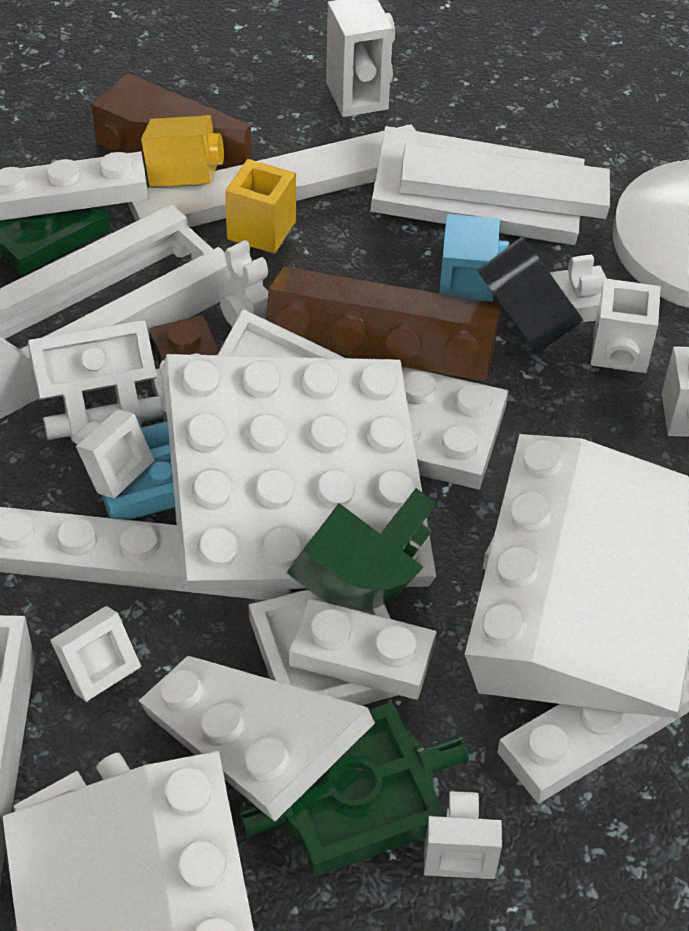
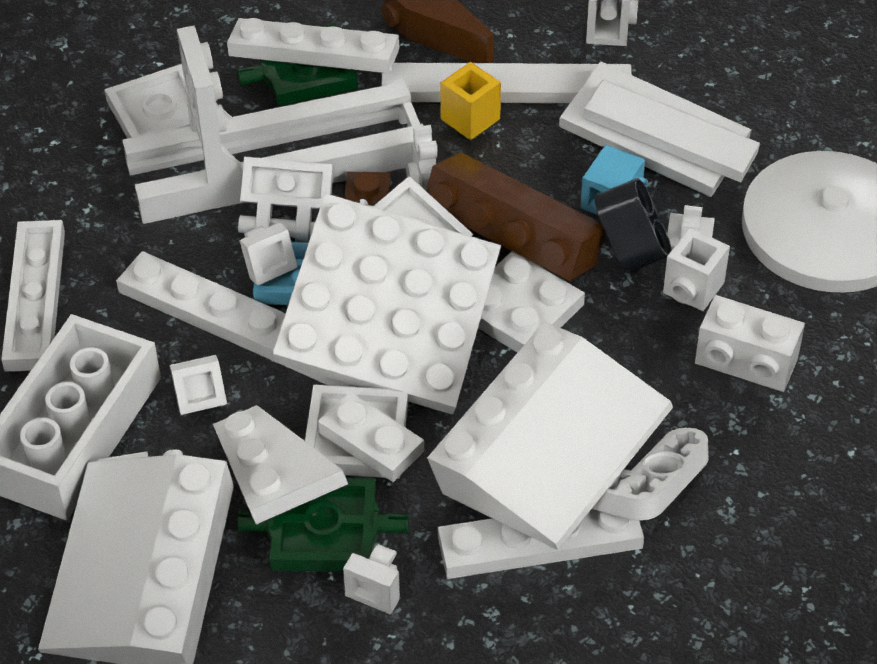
camera: 25 degrees right, 0 degrees up
(181, 151) = (432, 41): yellow brick -> none
(358, 566) = (390, 380): dark green brick -> none

